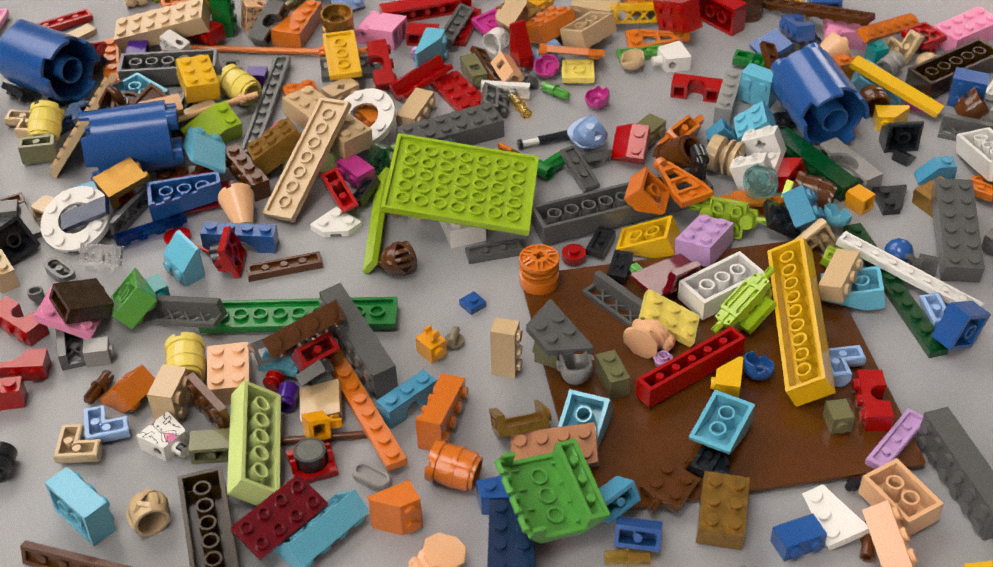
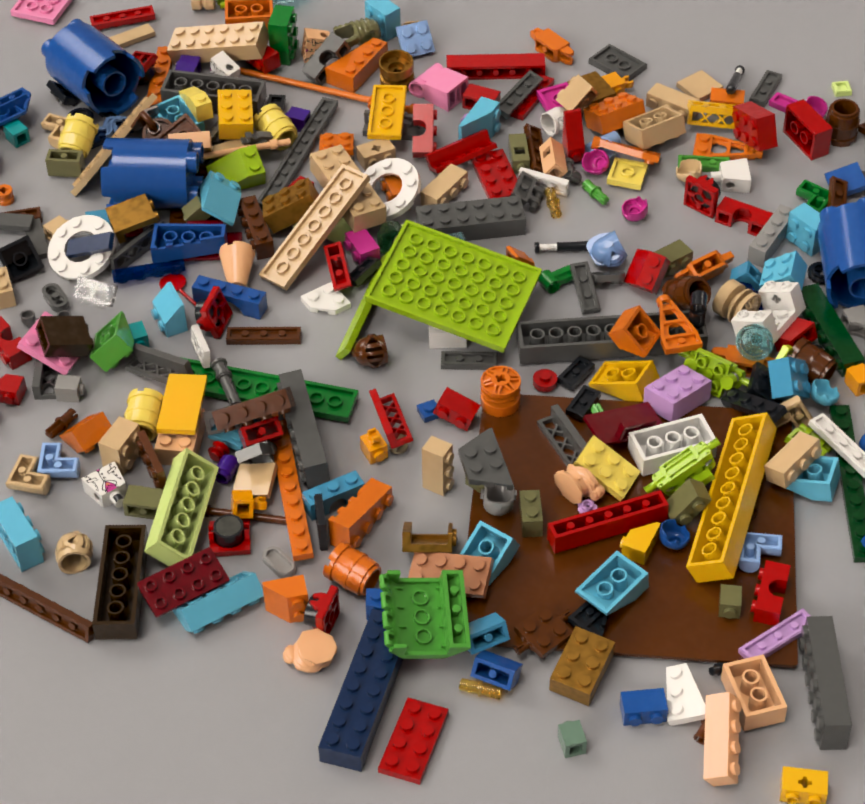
camera: 15 degrees right, 5 degrees up
(159, 74) = (198, 103): none -> light yellow slope
(182, 165) = (193, 212): none -> olive brick
(224, 341) = (182, 404): none -> yellow tile
(225, 285) = (200, 346): none -> white tile
(226, 94) = (258, 137): none -> dark grey plate
(259, 309) = (224, 377): none -> dark grey pin
(405, 426) = (321, 522): none -> black tile
(437, 512) = (323, 610): none -> red piece
(439, 320) = (388, 422): none -> red fence
(501, 294) = (456, 409): none -> red brick
(653, 74) = (702, 195): none -> red piece
(761, 331) = (688, 501): none -> olive brick
(778, 236) = (753, 404): none -> black plate

